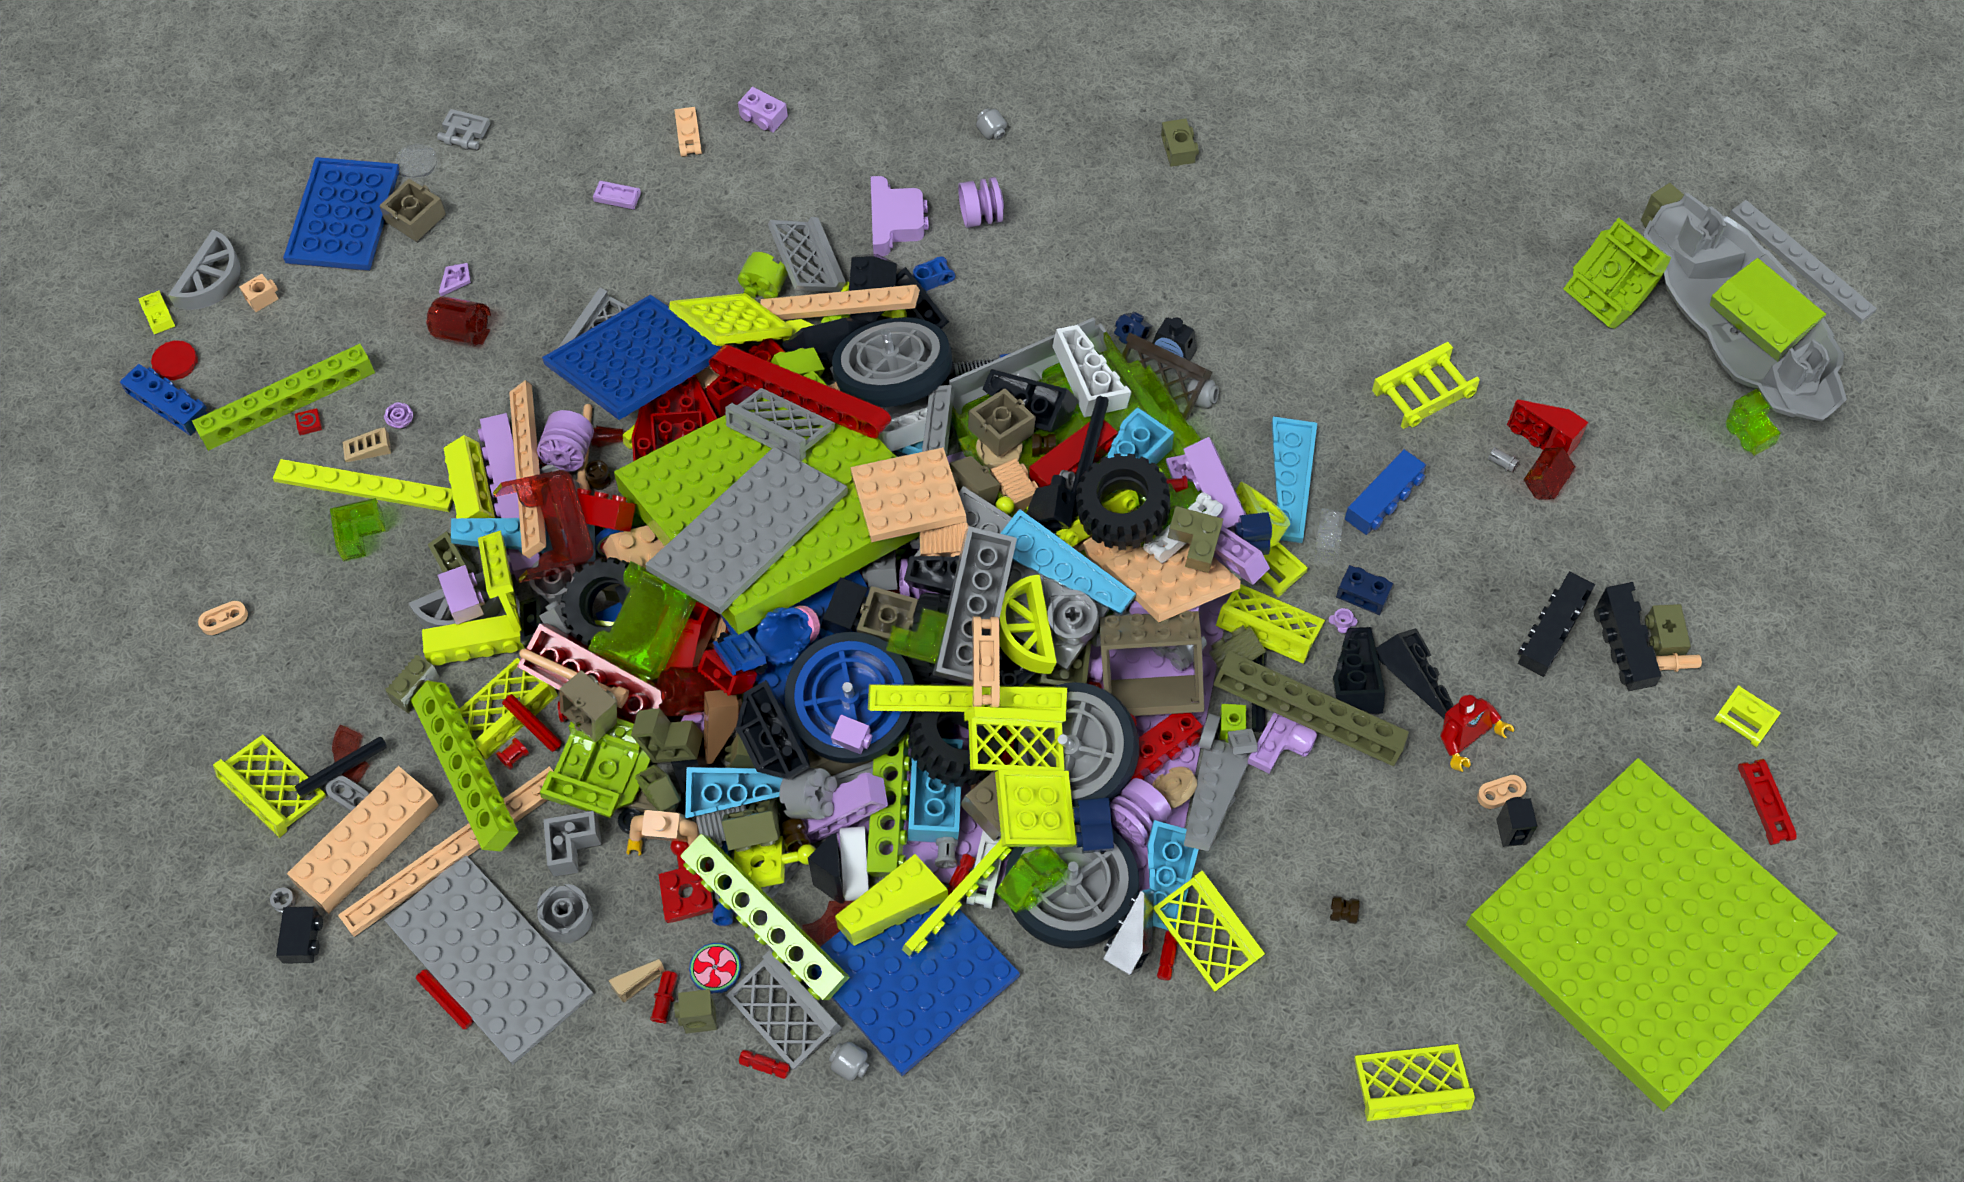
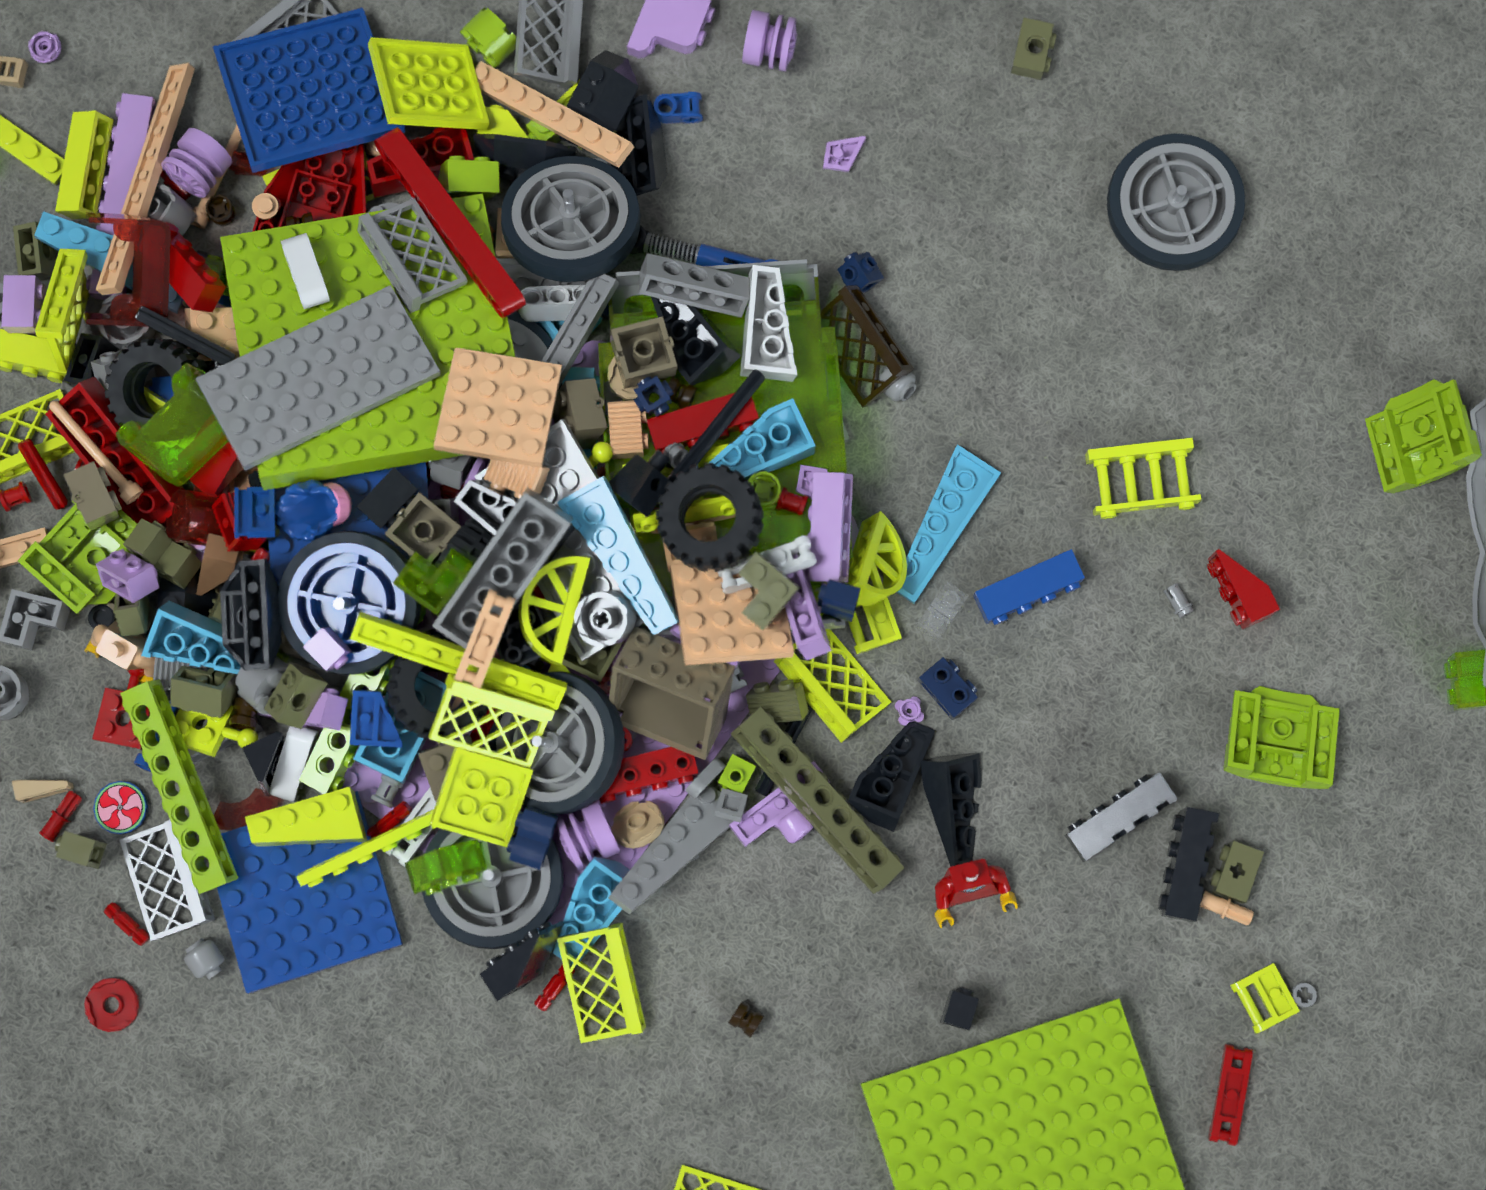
camera: 25 degrees right, 20 degrees up
(594, 552) = (184, 335): none -> black axle
(638, 444) = (265, 206): none -> light nougat plate
(644, 760) = (127, 575): none -> lavender brick
(698, 462) = (305, 271): none -> white beam
(787, 1155) = (127, 1009): none -> red tile
(838, 788) = (295, 696): none -> olive brick
(911, 789) = (372, 721): none -> blue wing
(1016, 362) = (694, 285): none -> light grey brick
(1026, 446) = (648, 387): none -> dark blue brick
(1073, 260) = (842, 153): none -> lavender piece
(1176, 338) = (897, 308): black torso -> none
(1341, 198) = (1175, 202): none -> light grey wheel
(1499, 790) = (968, 964): light nougat plate -> none
(1549, 473) = (1214, 641): clear red brick -> none
(1644, 523) = (1282, 739): none -> lime slope
(1777, 696) = (1309, 989): none -> light grey bush

